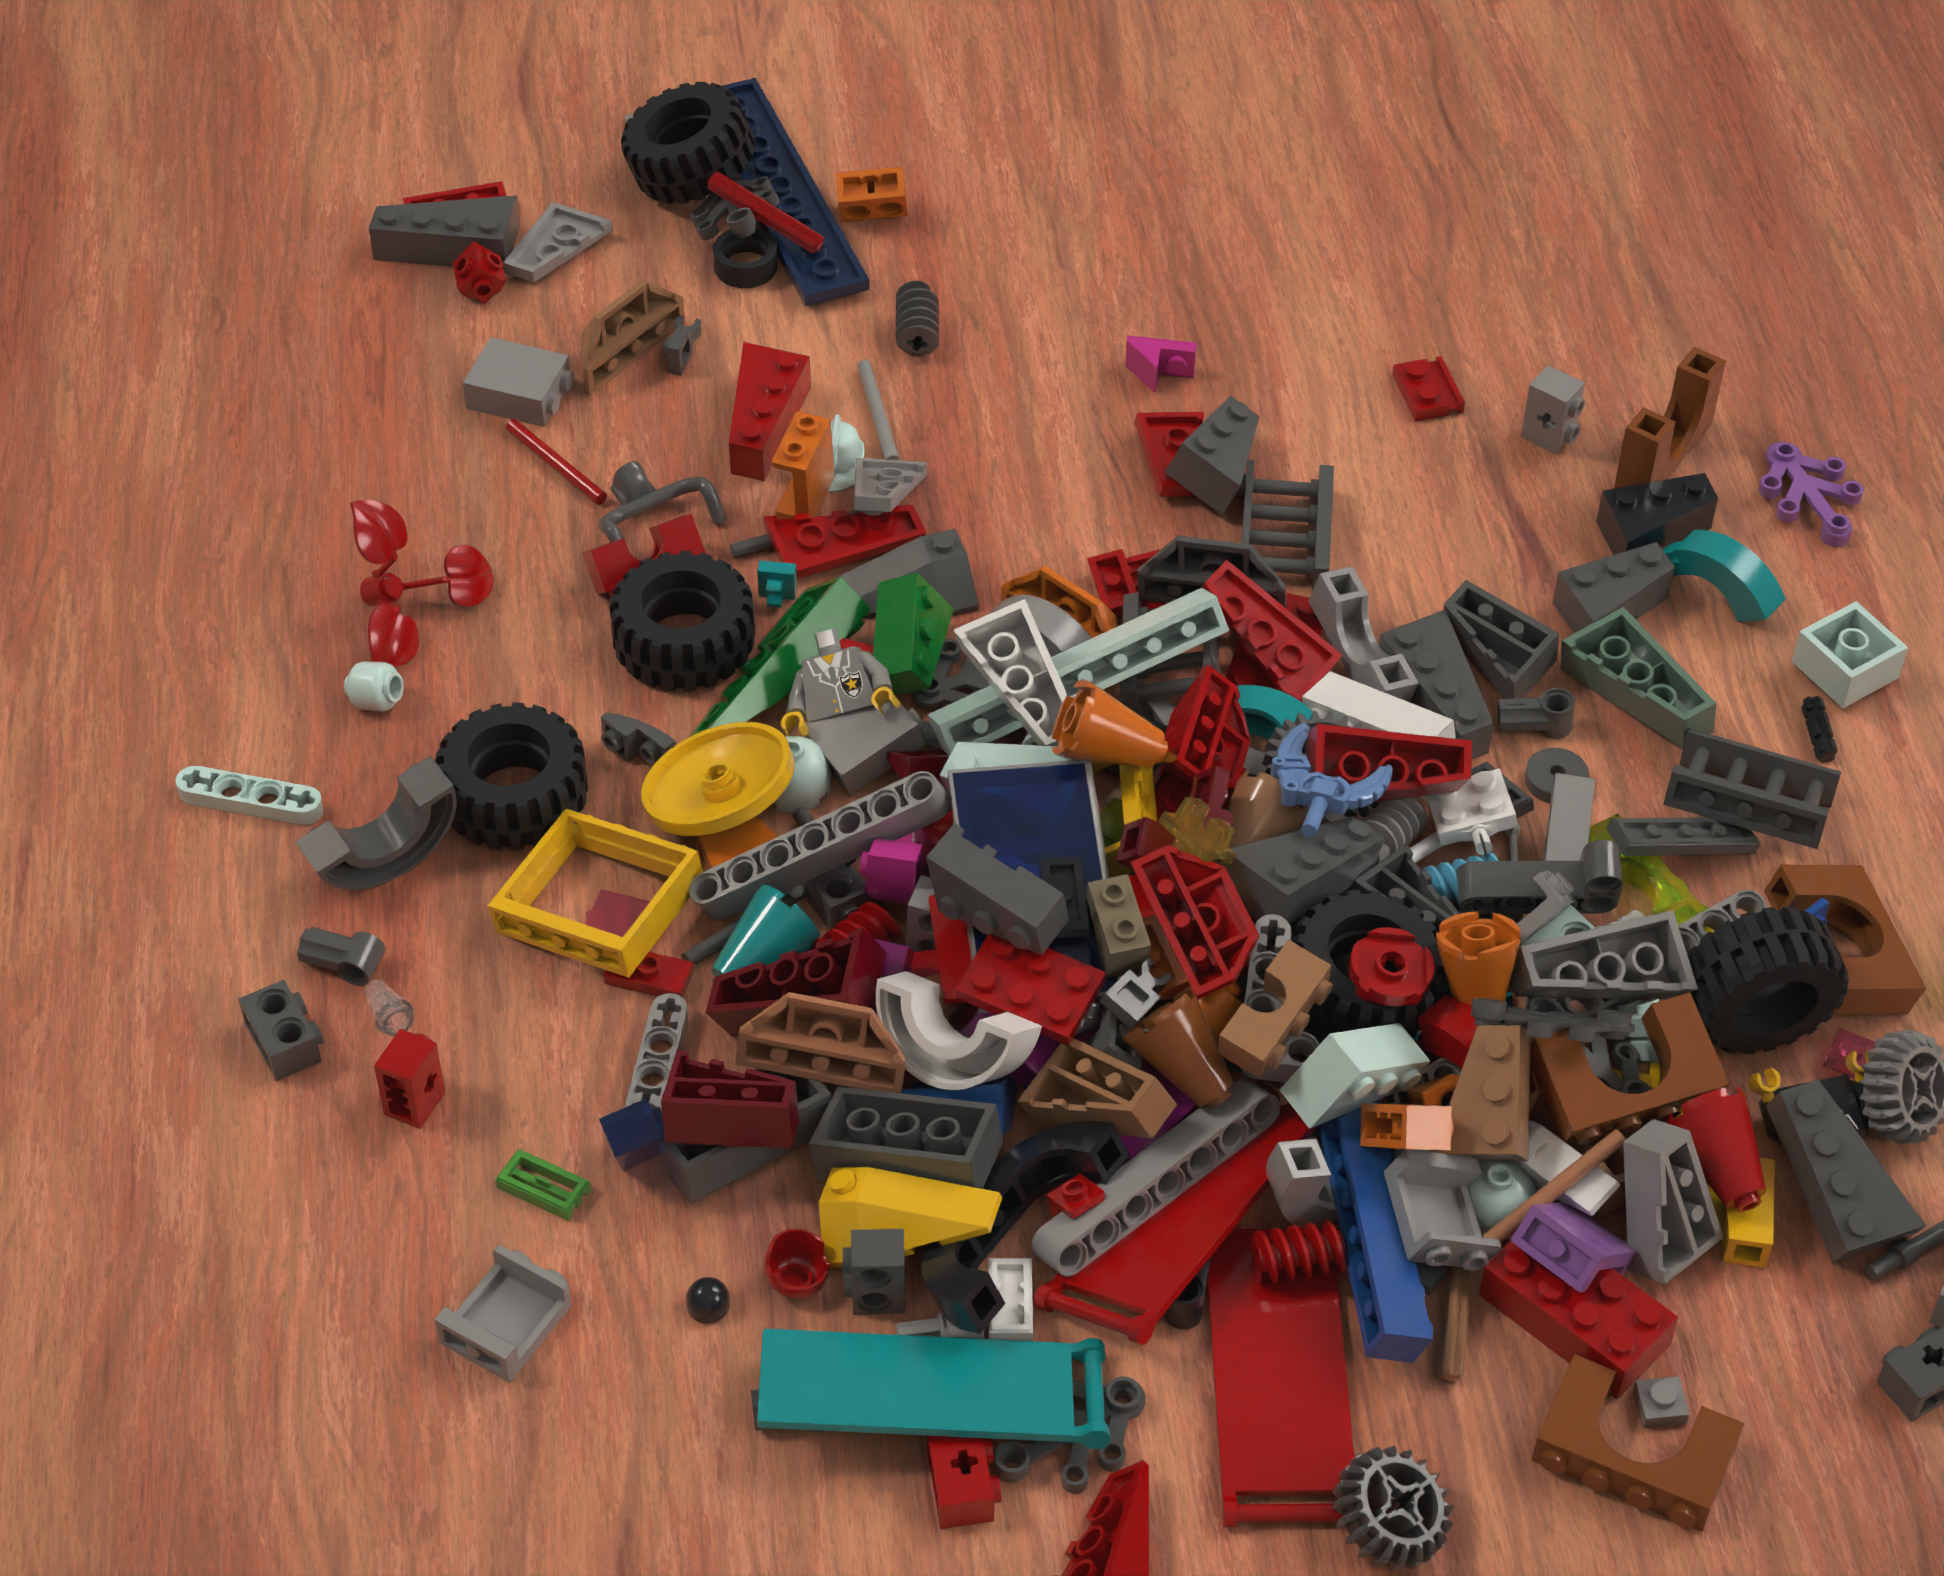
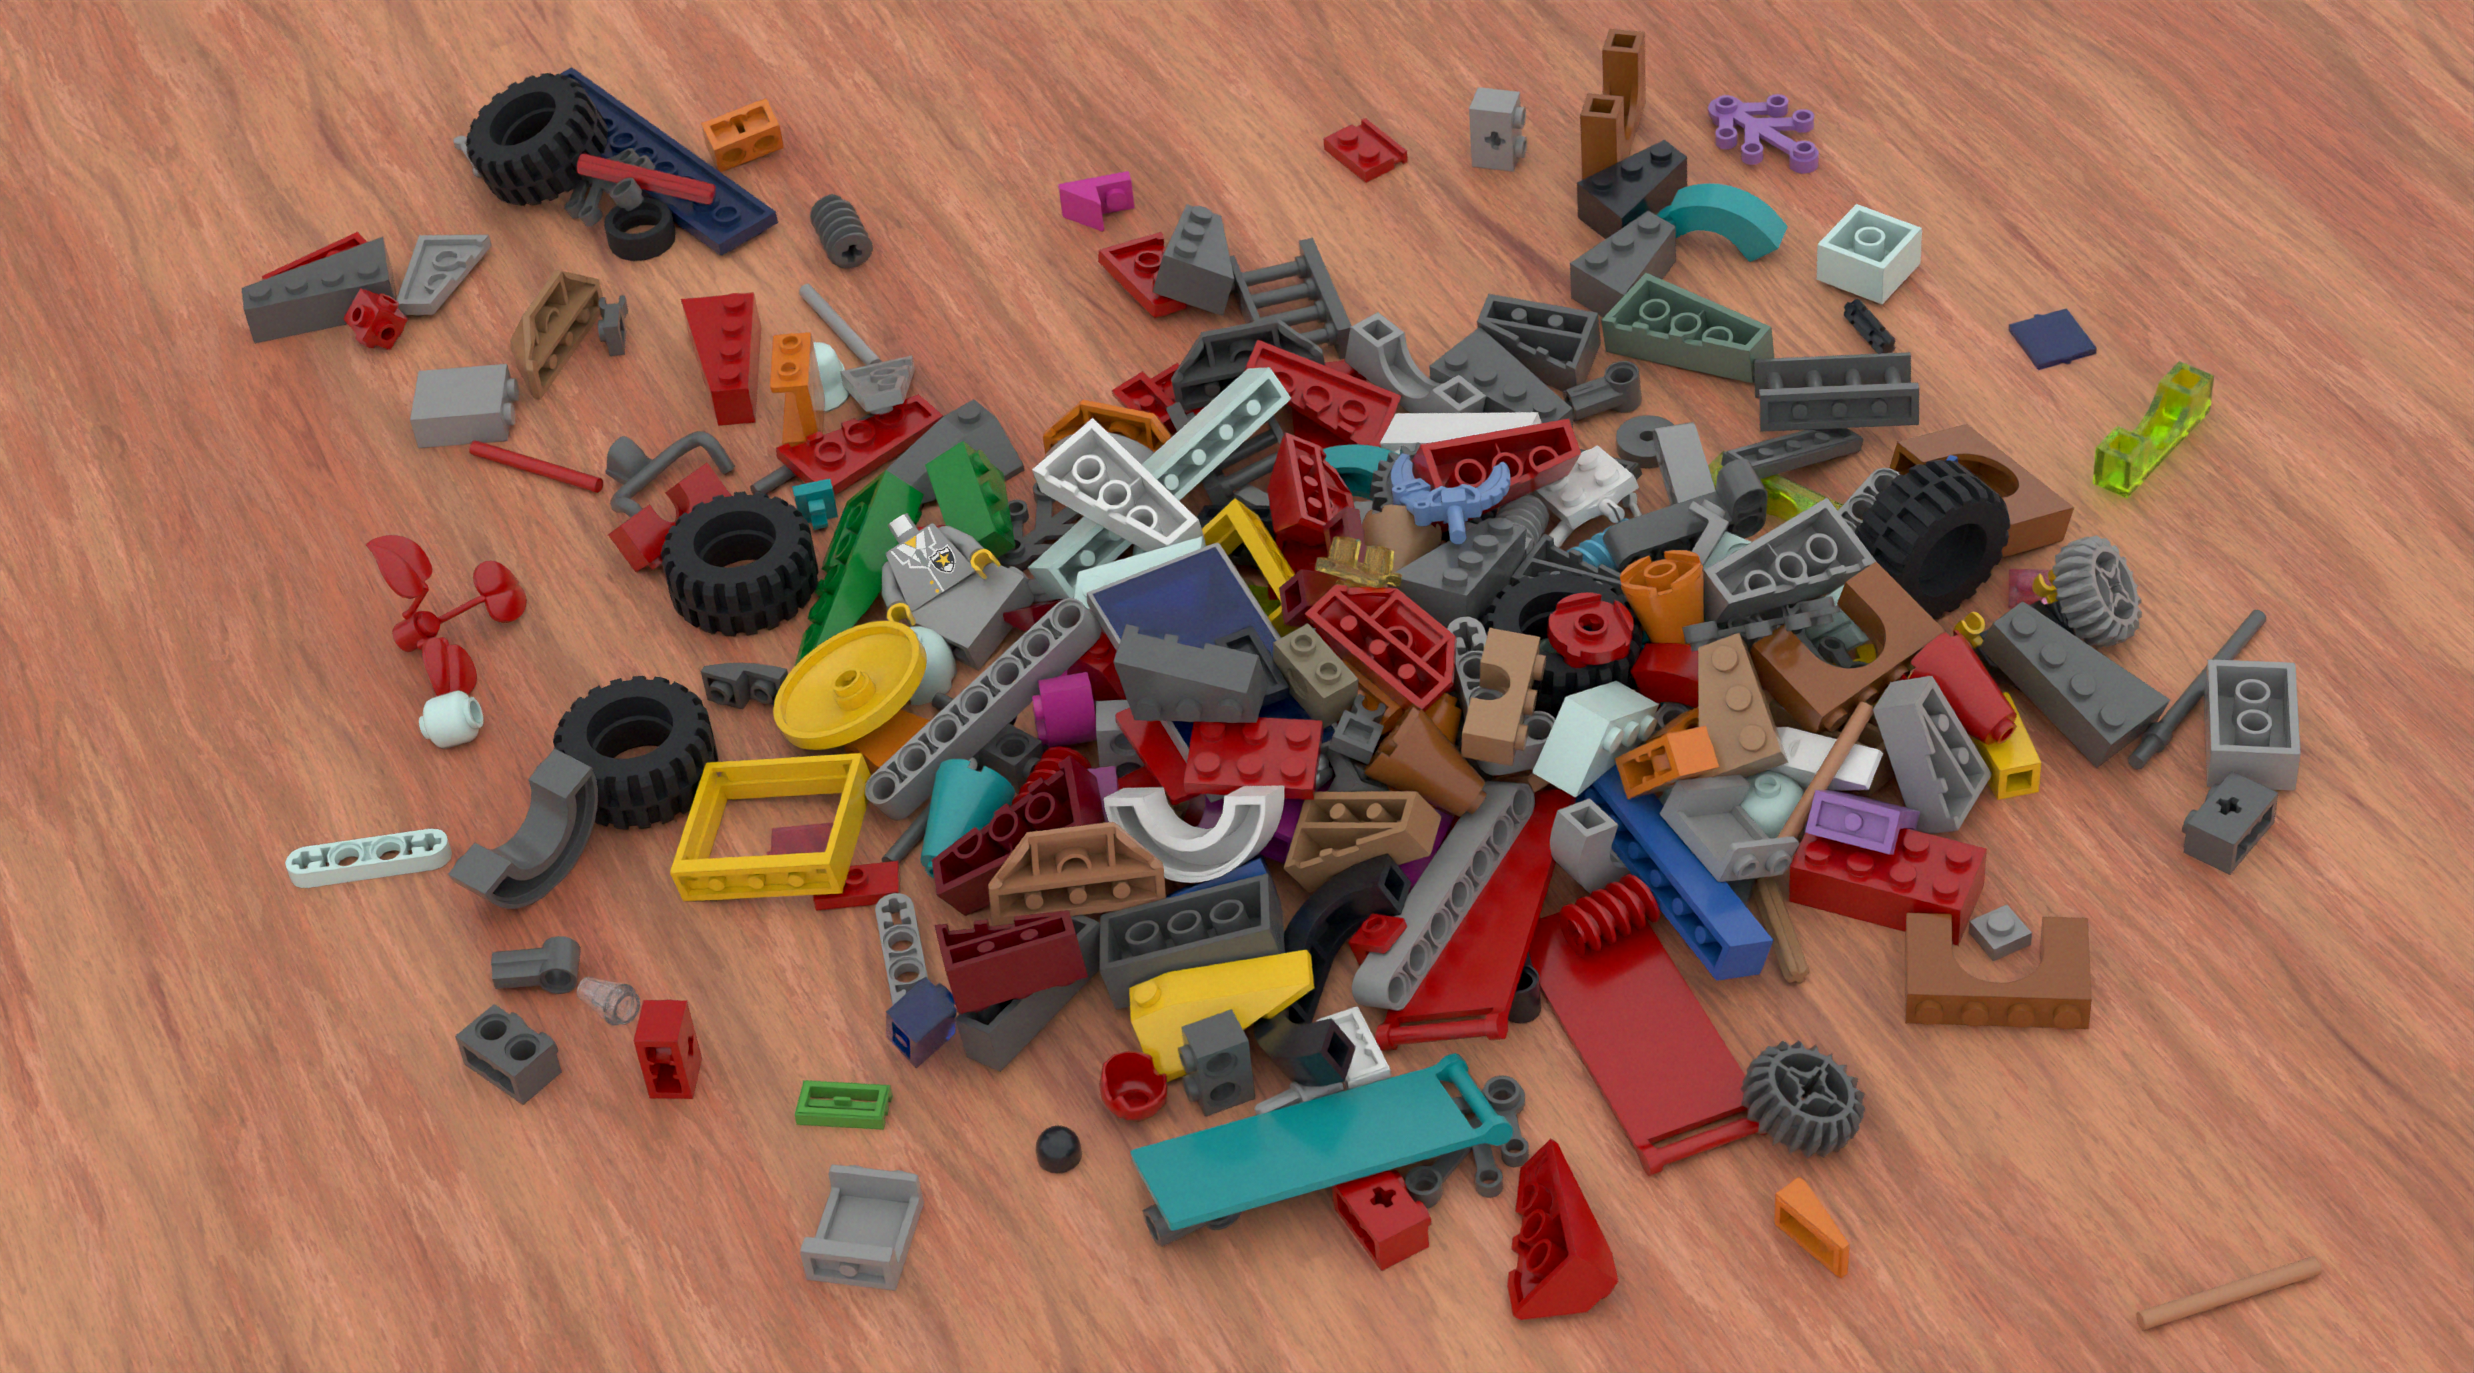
camera: 15 degrees left, 5 degrees down
(1105, 730) = (1223, 509): orange cone -> none

